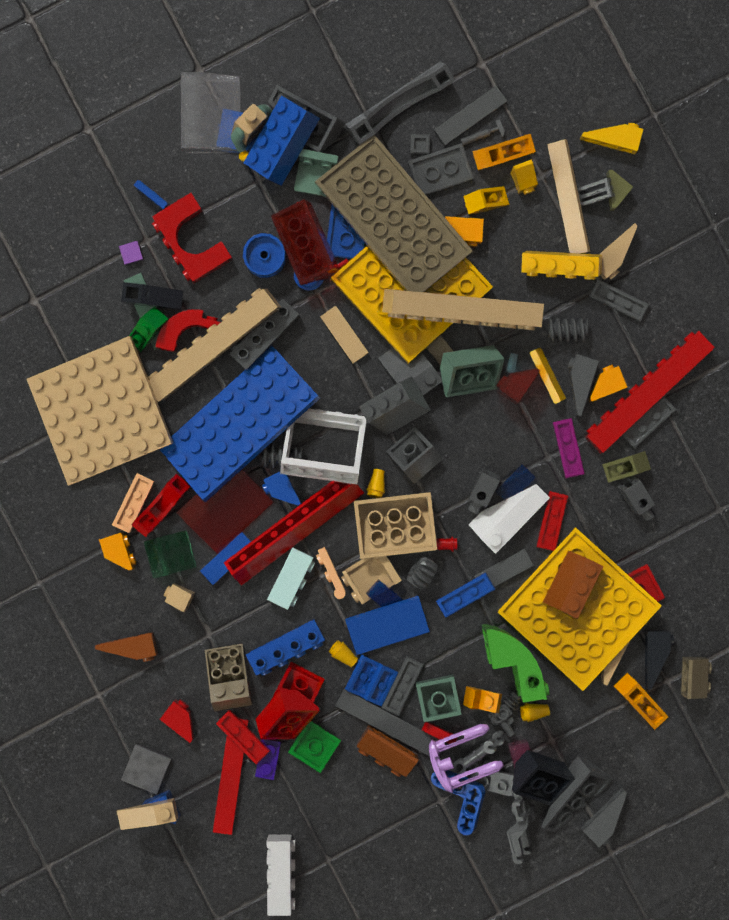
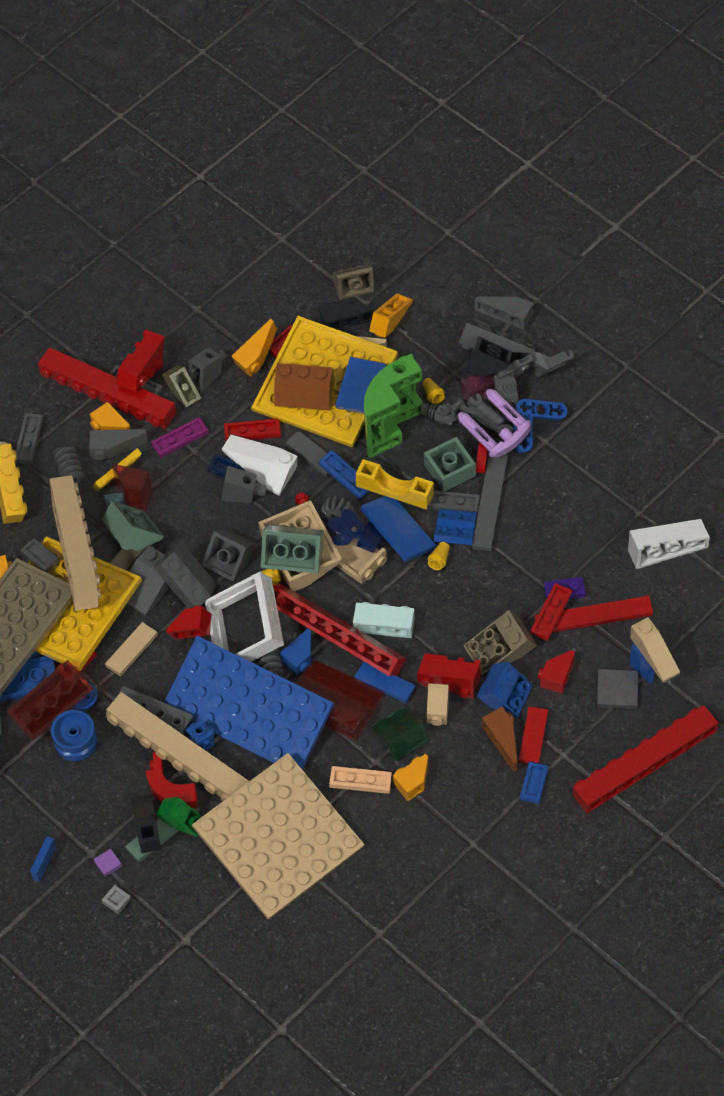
camera: 105 degrees left, 30 degrees down
(64, 767) = (644, 759): none -> red brick
(78, 658) = (534, 782): none -> blue tile
(90, 250) = (116, 899): none -> light grey plate
(125, 674) = (533, 735): none -> red tile
(161, 505) = (351, 751): red arch -> none
(169, 223) = (69, 833): red arch -> none
(178, 665) = (505, 688): none -> blue slope
(208, 619) = (459, 675): none -> red wedge
(230, 375) = (201, 734): none -> blue brick
(285, 647) = (451, 604): blue brick -> none
(285, 715) = (514, 576): red slope -> none
(302, 680) = (489, 581): red slope -> none
(314, 746) = (535, 553): green plate -> none
(331, 573) = (365, 587): light nougat plate -> none
(343, 397) = (191, 623): none -> red slope
(383, 514) = (291, 548): none -> sand green slope
(387, 751) = (515, 489): dark orange slope -> none
(396, 571) = (343, 528): none -> clear blue plate
(428, 636) = (375, 479): none -> yellow arch
(470, 274) = (40, 555): none -> dark grey tile
(482, 699) = (436, 429): light orange slope -> none
(555, 641) = (355, 384): none -> blue tile
(639, 550) = (254, 352): none -> light orange slope
(659, 433) = (143, 363): none -> red wedge

